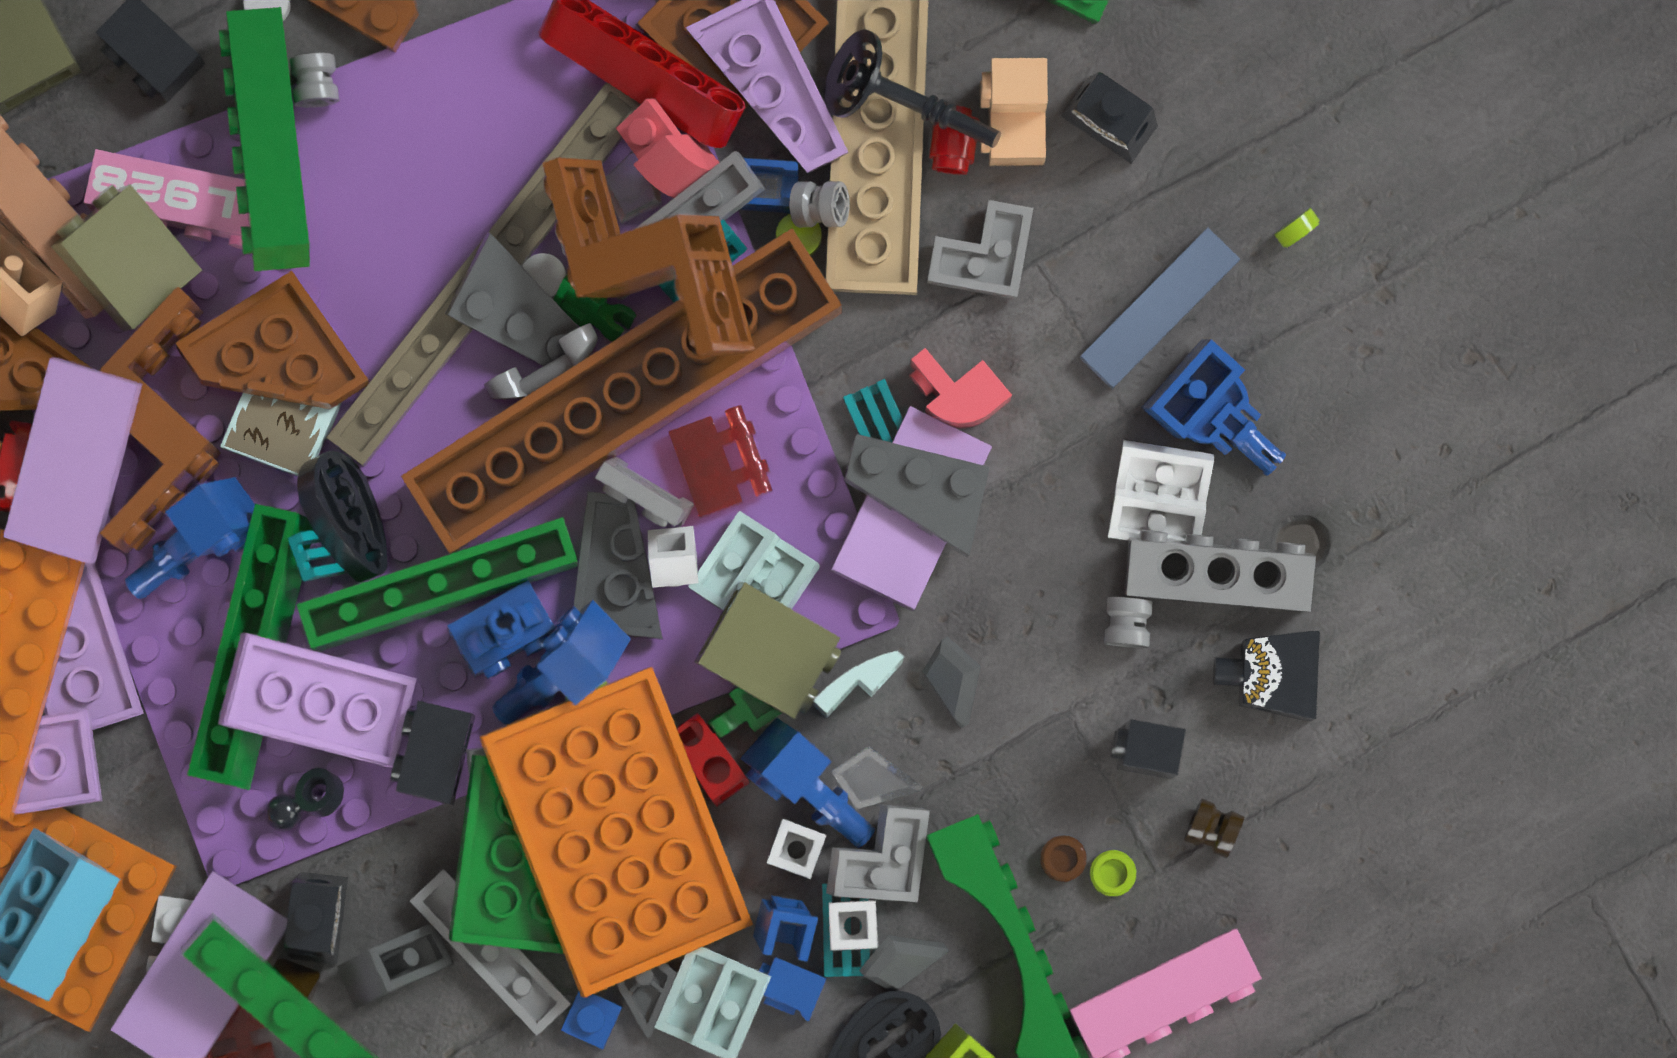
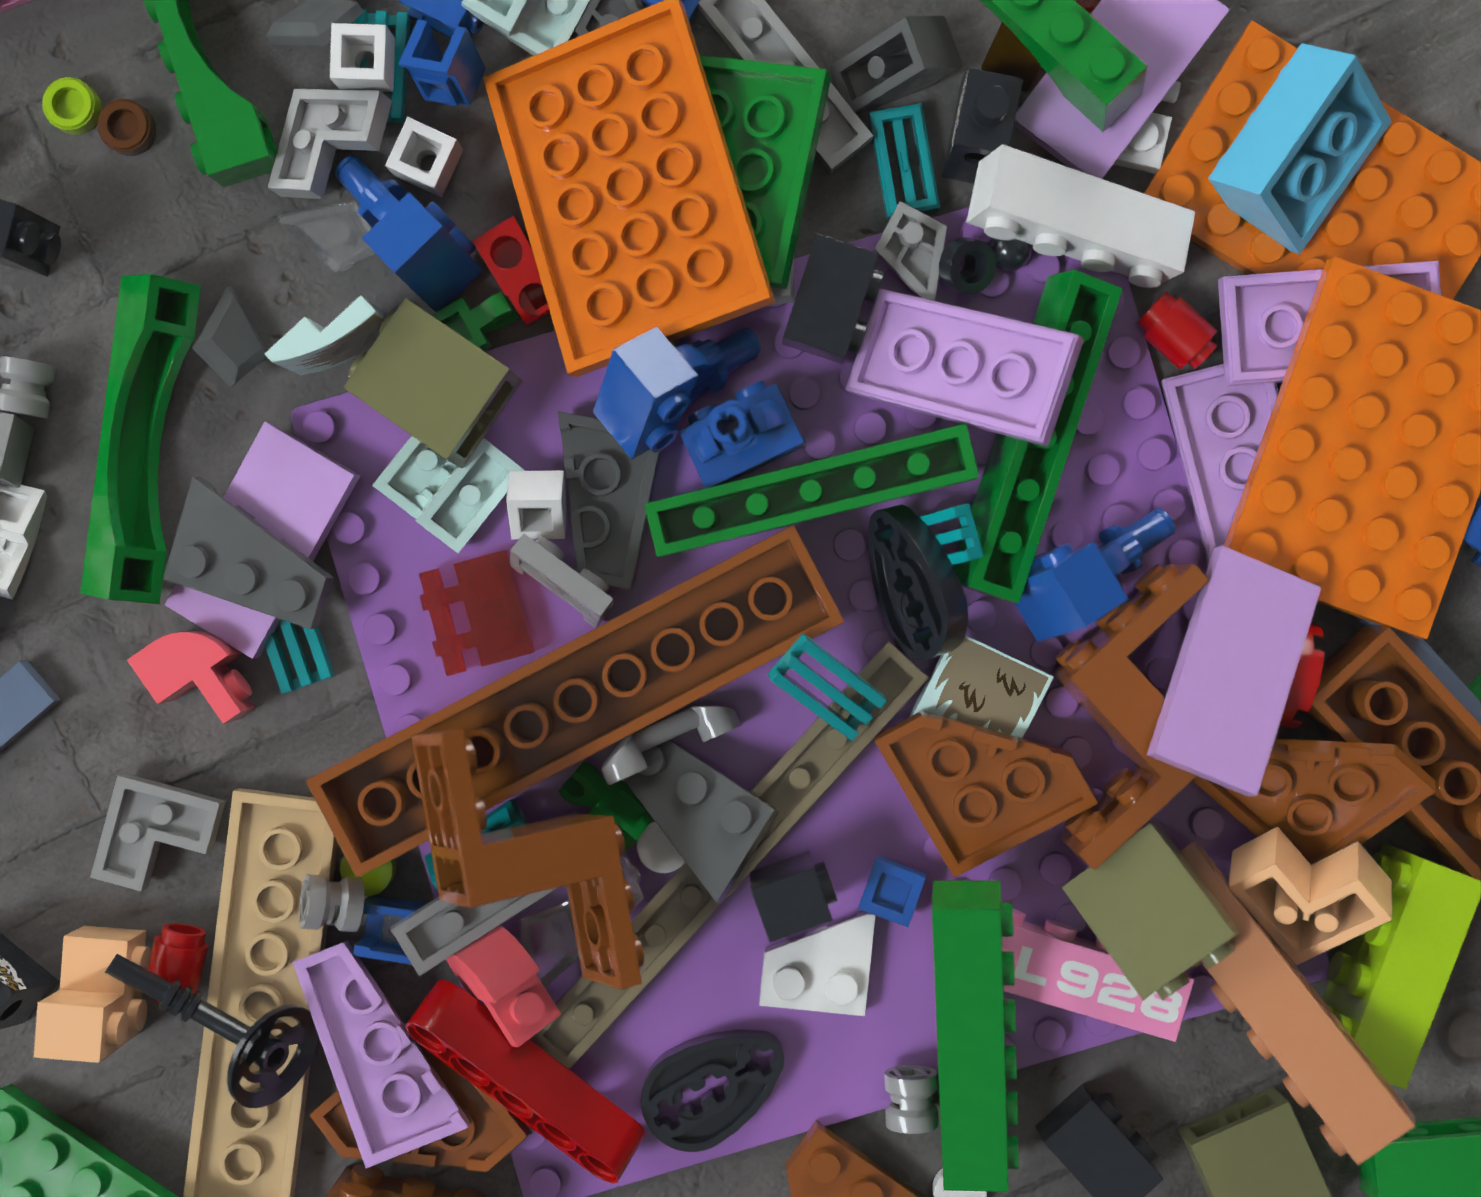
camera: 175 degrees left, 5 degrees up
(133, 755) = (1178, 331): none -> red brick
(225, 838) = (1080, 217): none -> white brick
(343, 254) = (892, 890): none -> blue plate
(367, 804) = (913, 249): none -> light grey piece
(383, 402) = (859, 712): none -> teal tile
(391, 923) = (895, 116): none -> teal tile
(399, 182) = (822, 969): none -> white wing
(427, 244) = (792, 895): none -> black brick
(477, 51) = (719, 1115): none -> black piece
(1026, 495) = (148, 347): none -> green arch

